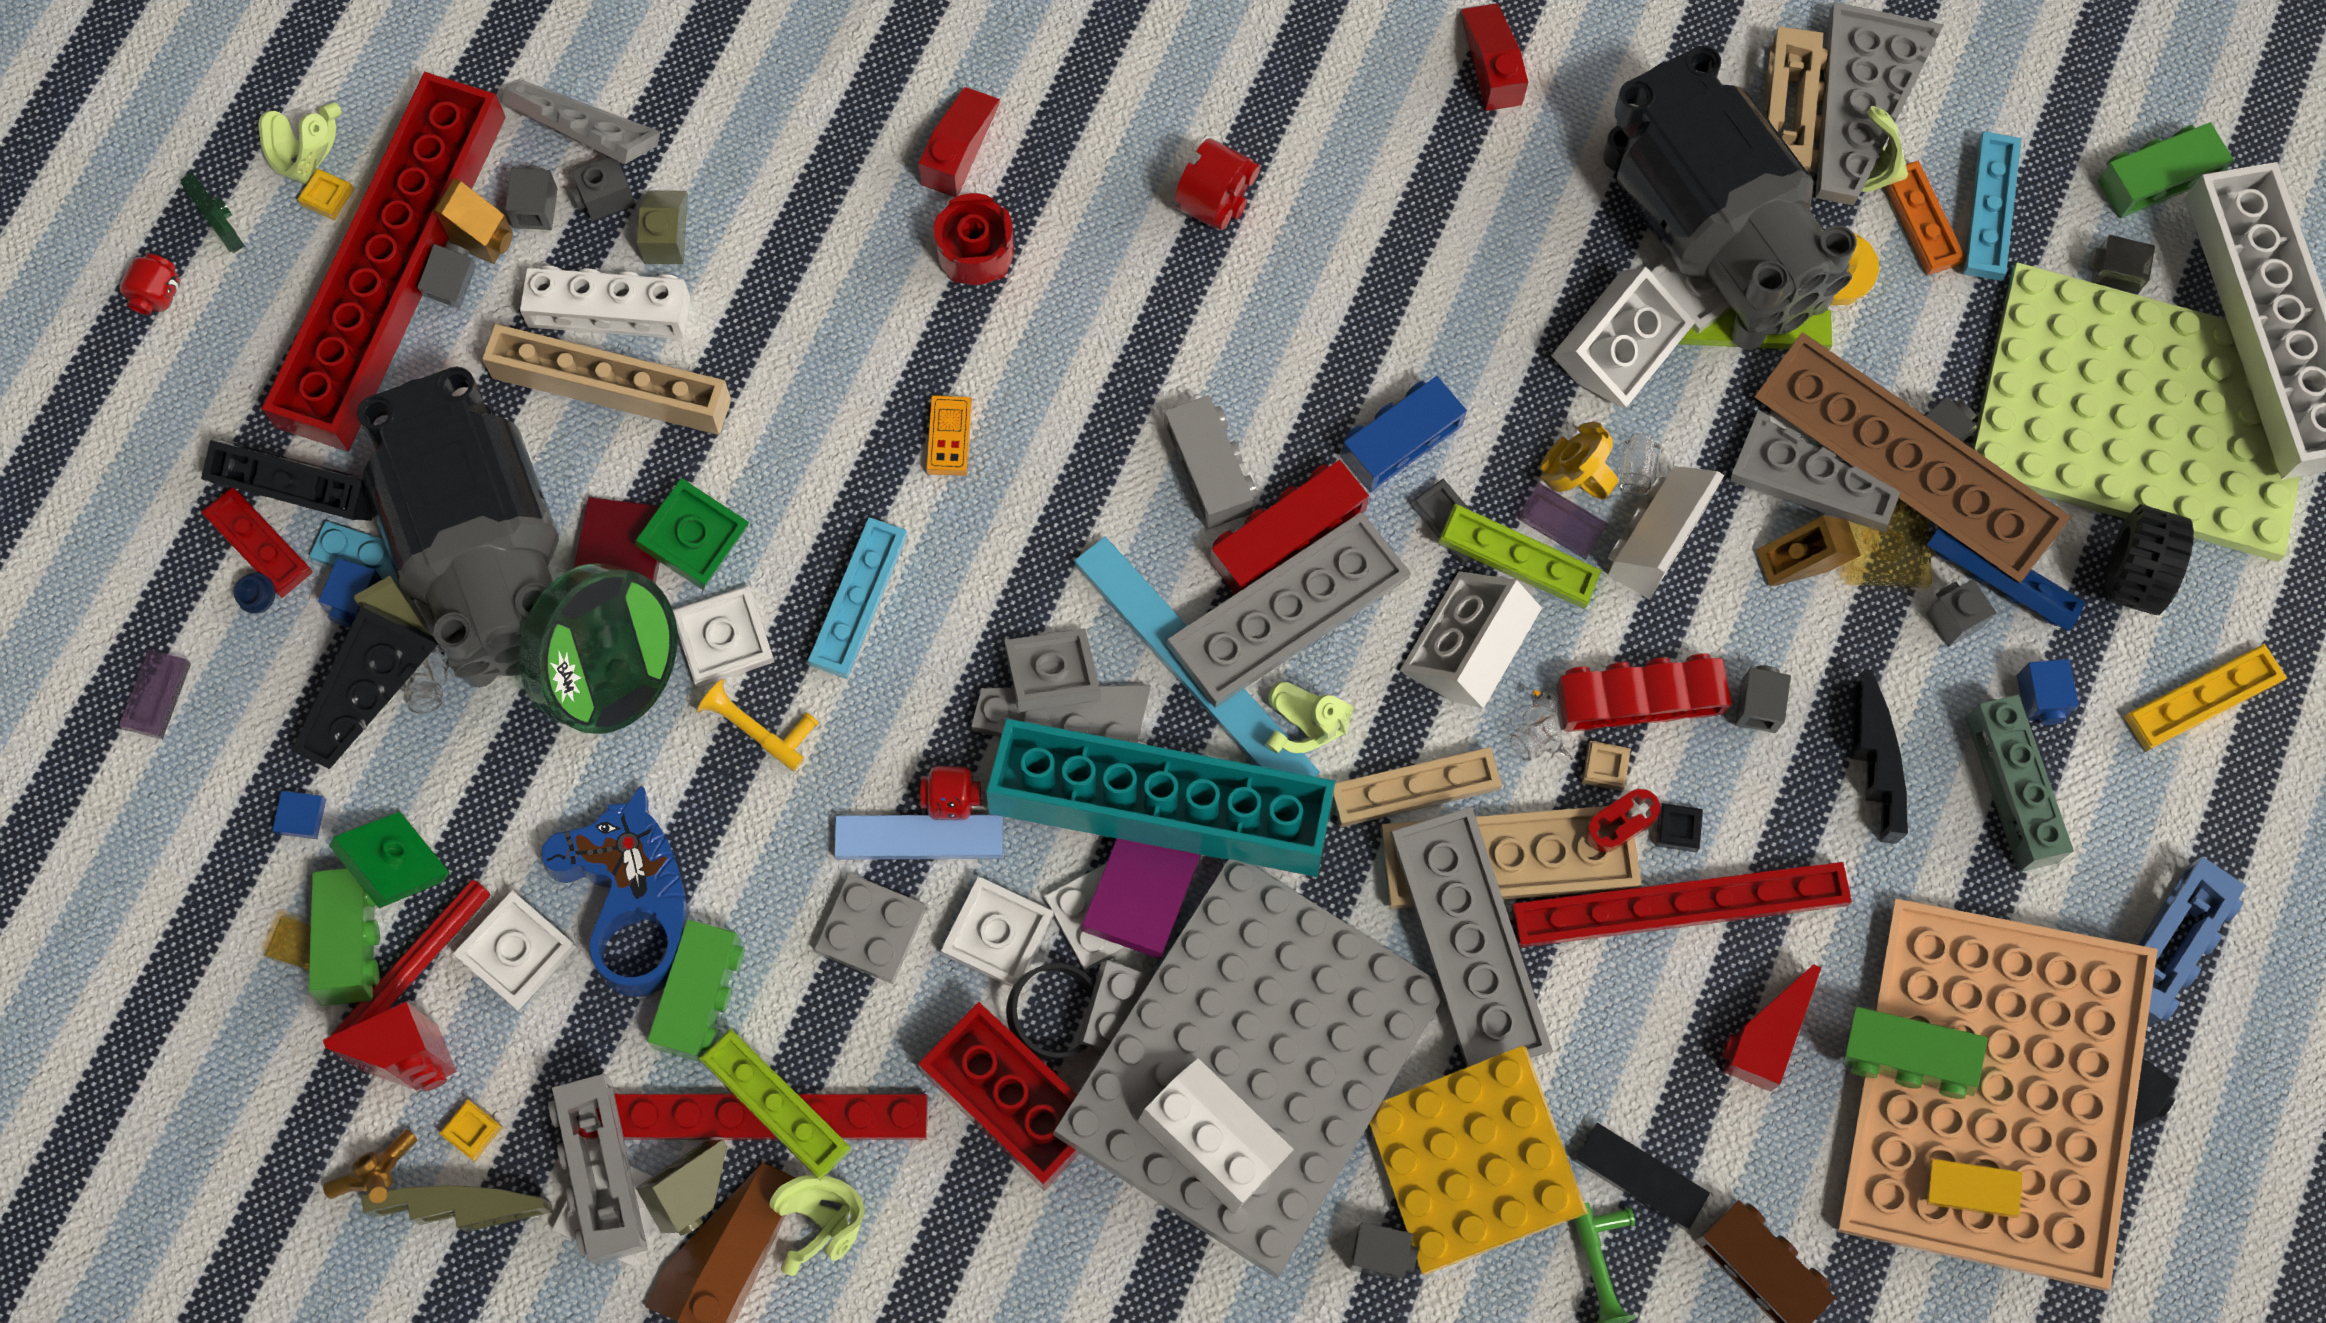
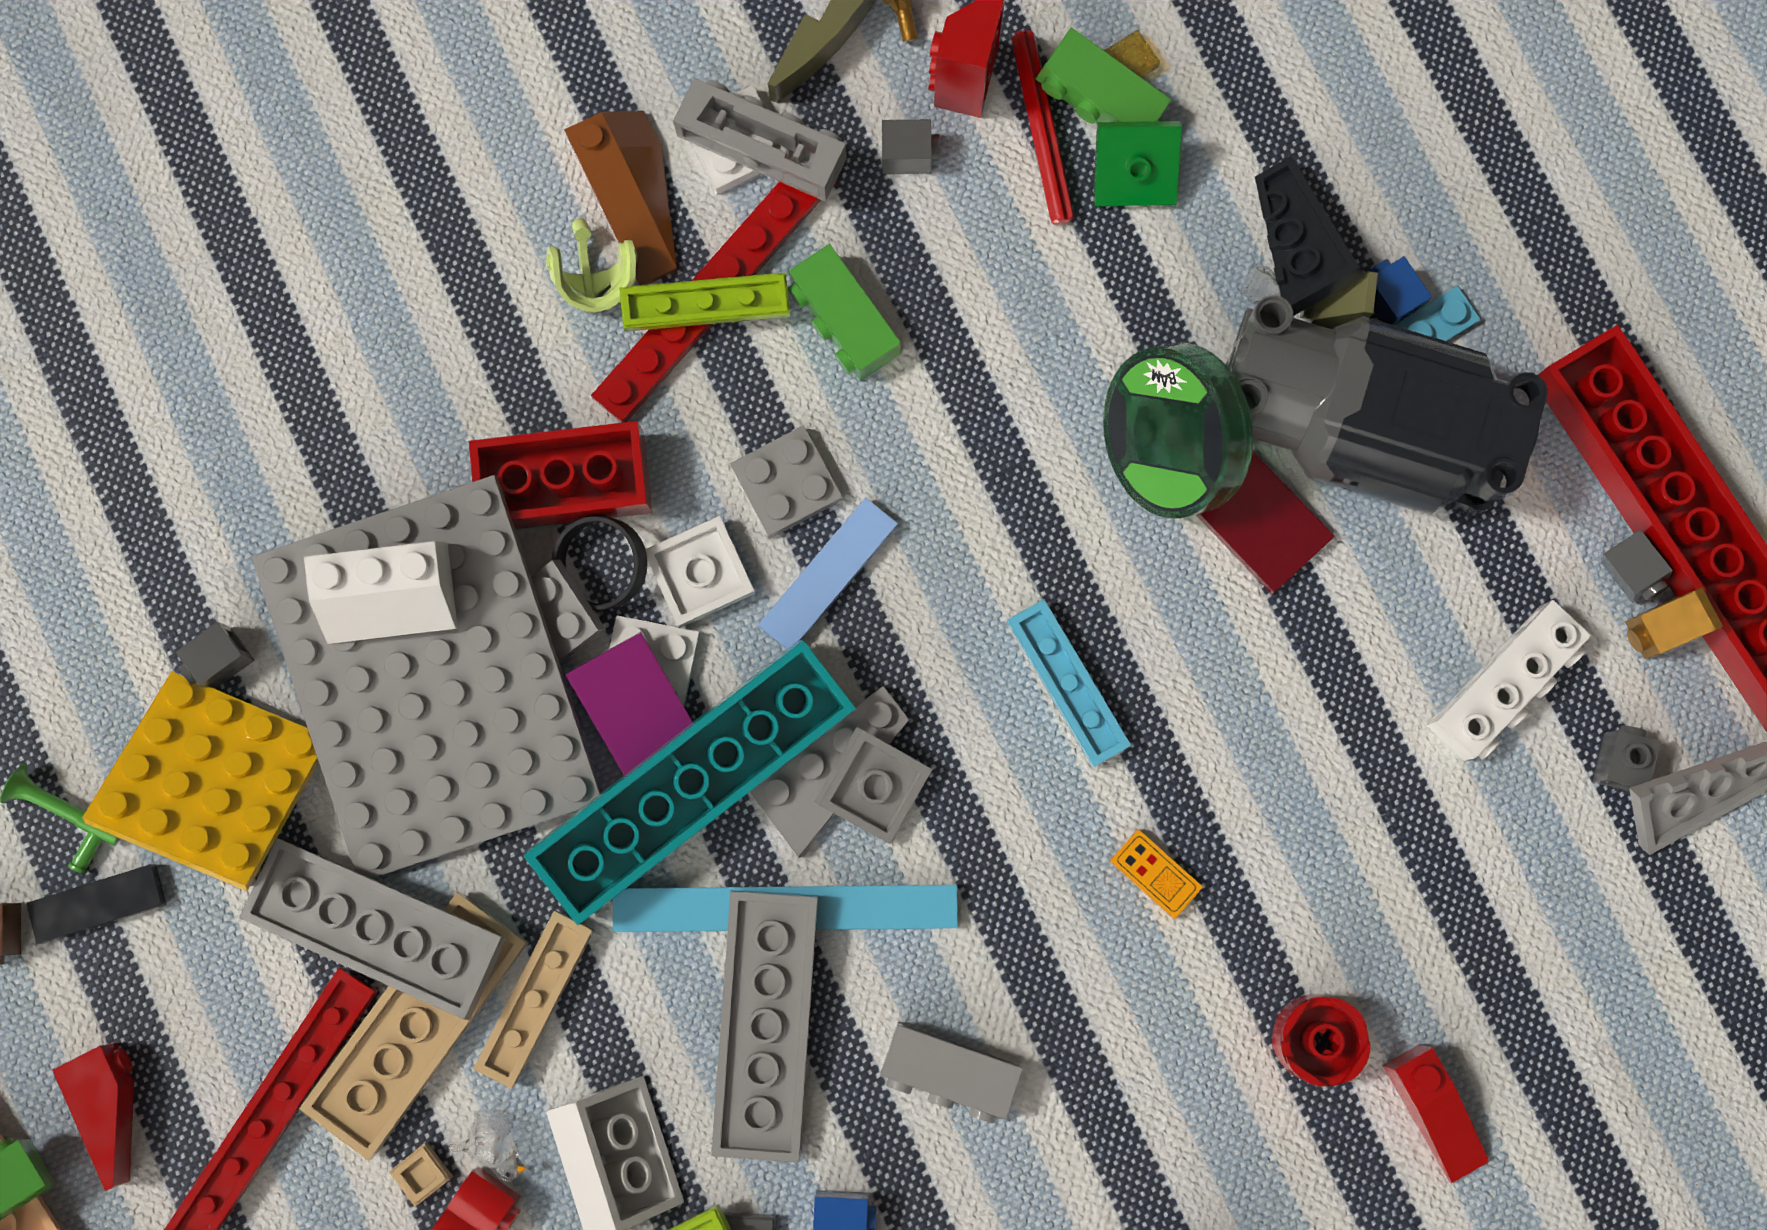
camera: 135 degrees right, 10 degrees up
(155, 694) = (1427, 94): clear purple tile -> none
(255, 593) = (1456, 221): dark blue plate -> none
(257, 541) = (1503, 255): red tile -> none
(287, 480) = (1541, 305): black brick -> none
(299, 815) = (1234, 130): blue tile -> none
(471, 1130) = (878, 83): yellow tile -> none
(511, 1055) = (908, 146): none -> dark grey brick
(514, 950) = (990, 208): white plate -> none
(531, 198) = (1662, 692): dark grey brick -> none
(607, 379) = (1430, 625): tan brick -> none
(636, 862) = (974, 344): blue animal -> none
(663, 227) = (1550, 786): olive slope -> none
(685, 1188) = (699, 195): olive slope -> none
(692, 533) = (1231, 591): green plate -> none
(723, 636) = (1125, 553): white tile -> none
(783, 750) = (989, 524): yellow piece -> none
(949, 793) = (839, 622): red head -> none
(1288, 526) = (836, 1088): red brick -> none
(1302, 710) = (678, 964): yellowish green helmet -> none
(1617, 812) = (346, 1139): red beam -> none
(1679, 827) = (321, 1187): black tile -> none

